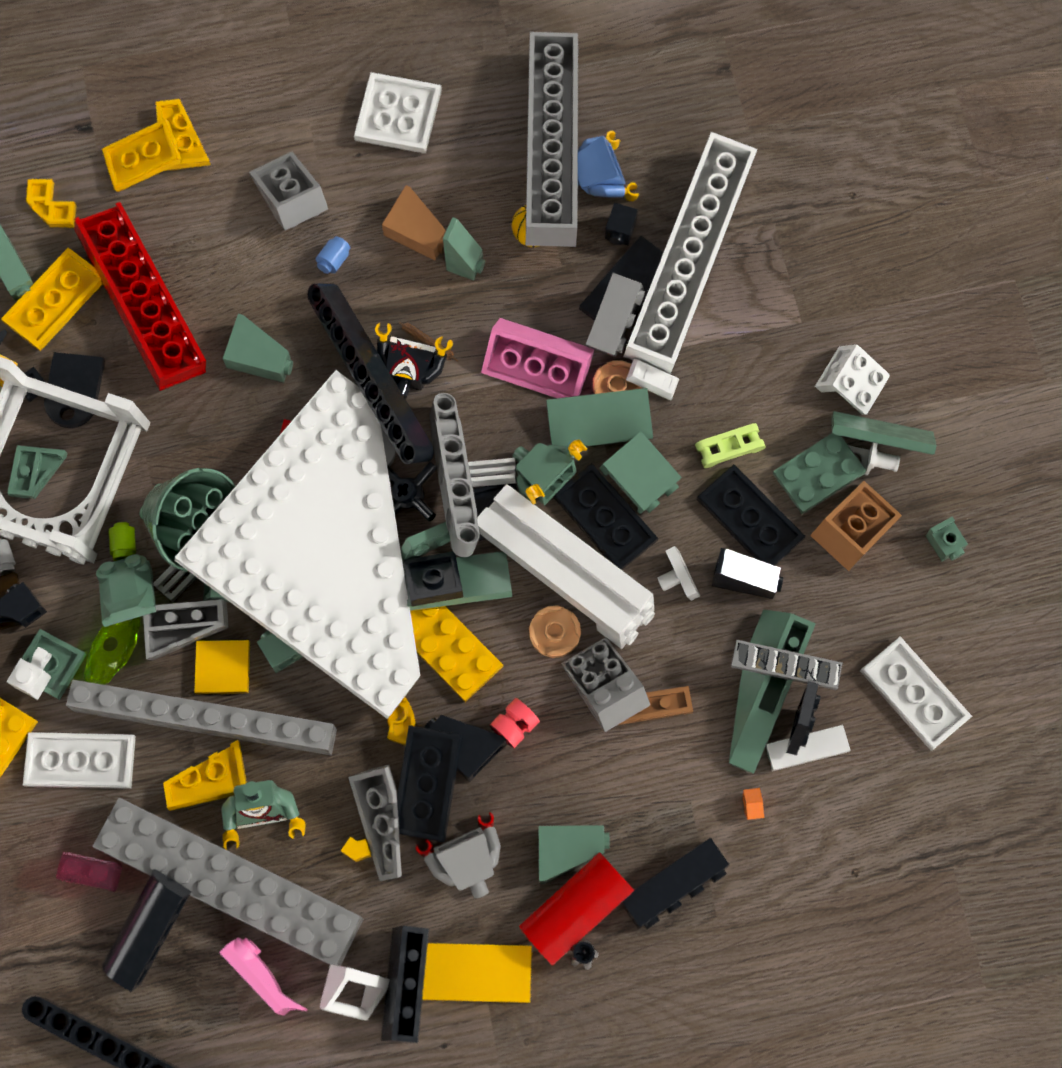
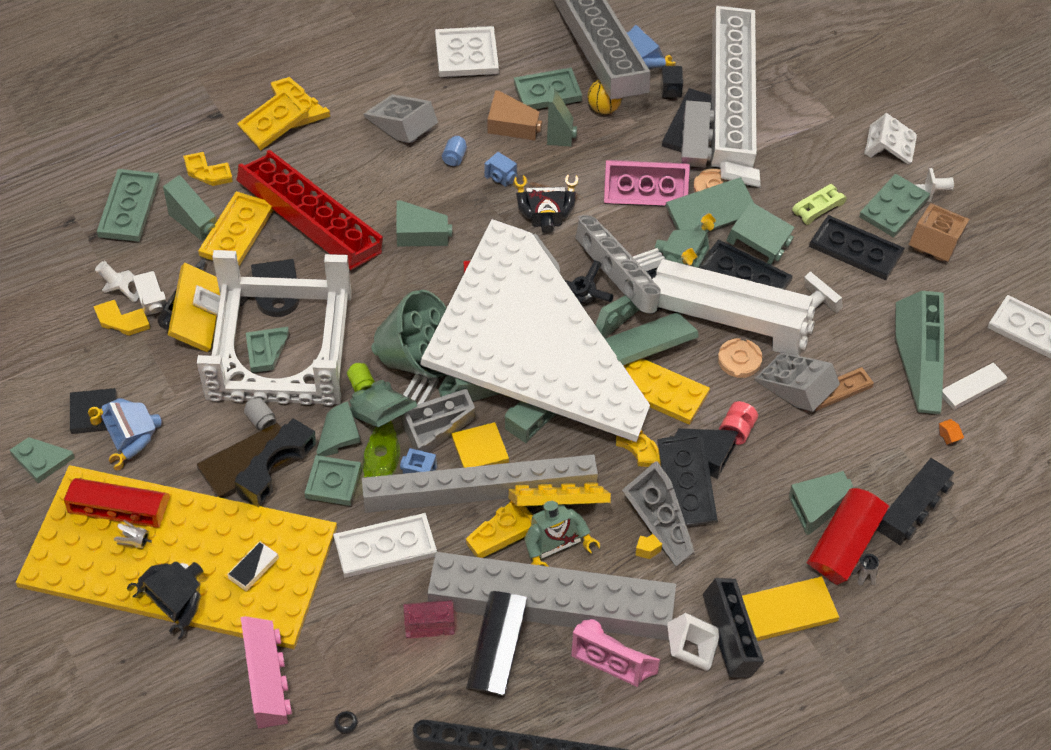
camera: 20 degrees left, 20 degrees down
(31, 677) = (325, 484): white brick -> none
(77, 601) = (338, 430): none -> sand green slope
(137, 667) = (418, 462): none -> medium blue brick
(276, 764) = (566, 494): none -> yellow plate
(370, 373) = (494, 199): black beam -> none
(376, 297) = (500, 169): none -> medium blue brick
(433, 578) = (631, 338): black tile -> none
(466, 859) = (741, 526): light grey torso -> none
(472, 193) = (535, 88): none -> sand green plate
(746, 575) = (871, 280): slope -> none
(786, 664) = (935, 323): tile -> none
(804, 718) = (963, 357): black plate -> none
(883, 433) = (923, 165): sand green tile -> none
(943, 548) = (1011, 224): sand green brick -> none

